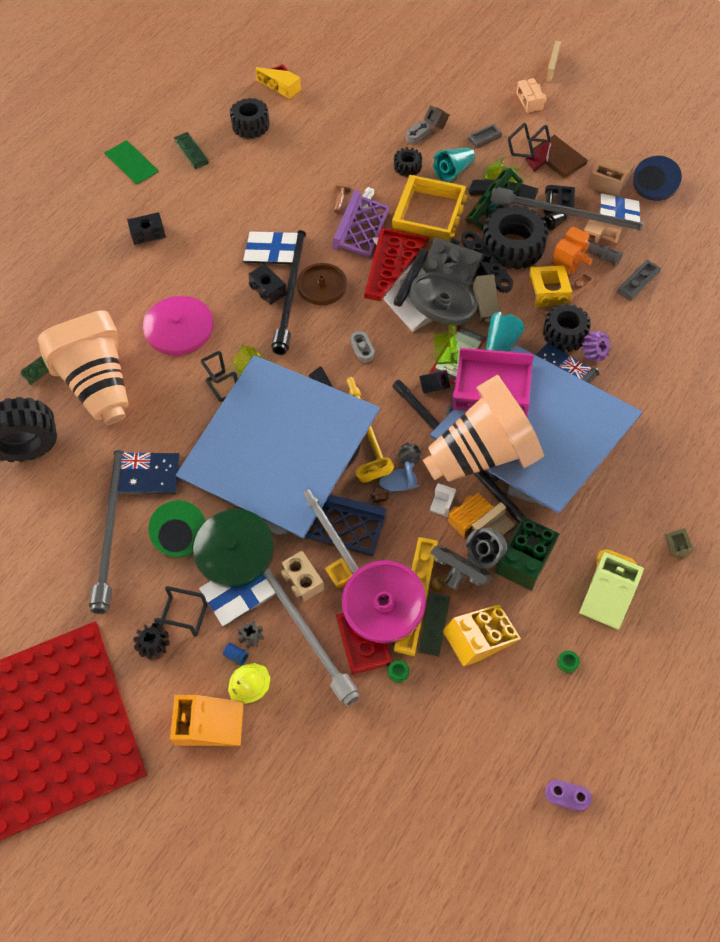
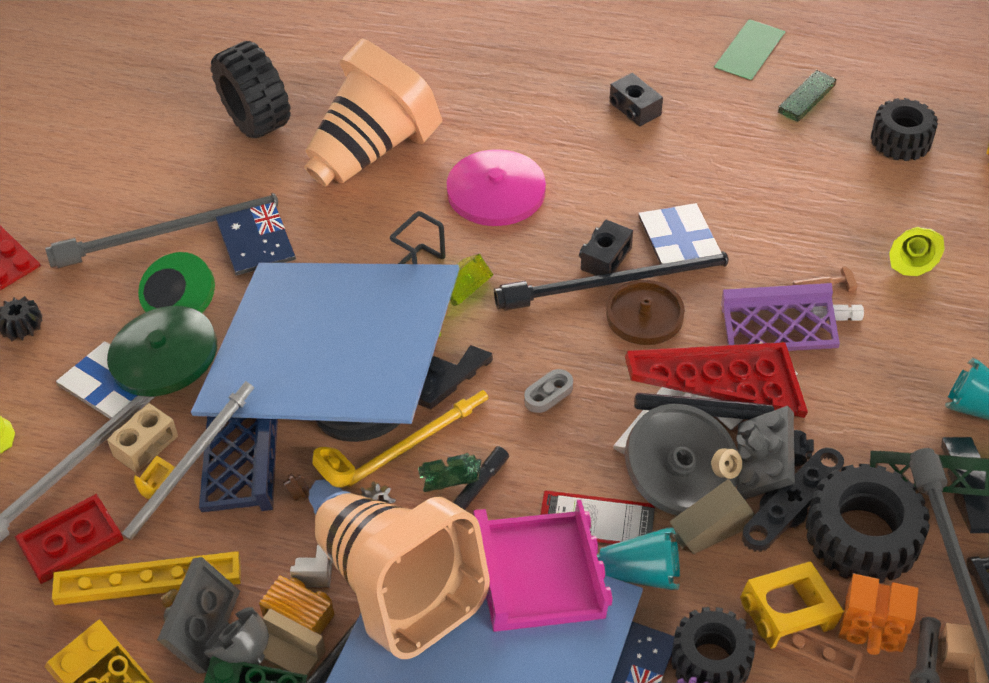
camera: 70 degrees right, 10 degrees down
(160, 621) = (38, 314): black piece -> none
(235, 654) = (18, 405): blue piece -> none
(247, 630) = (46, 410): dark grey gear -> none
(343, 148) = (916, 251): none -> neon yellow piece
(384, 601) = (115, 534): dark pink dish -> none
(398, 671) = (28, 592): green tile -> none
(406, 410) = (460, 470): none -> clear green hinge
(408, 155) = (953, 328): black tyre -> none
(434, 624) = (115, 614): clear green tile -> none
(435, 188) = (862, 360): yellow window -> none
(435, 381) = (523, 497): black panel -> none
(446, 346) = (602, 495): clear neon green panel -> none
(455, 280) = (726, 463): none -> tan tile
(554, 219) = (945, 577): black cone -> none

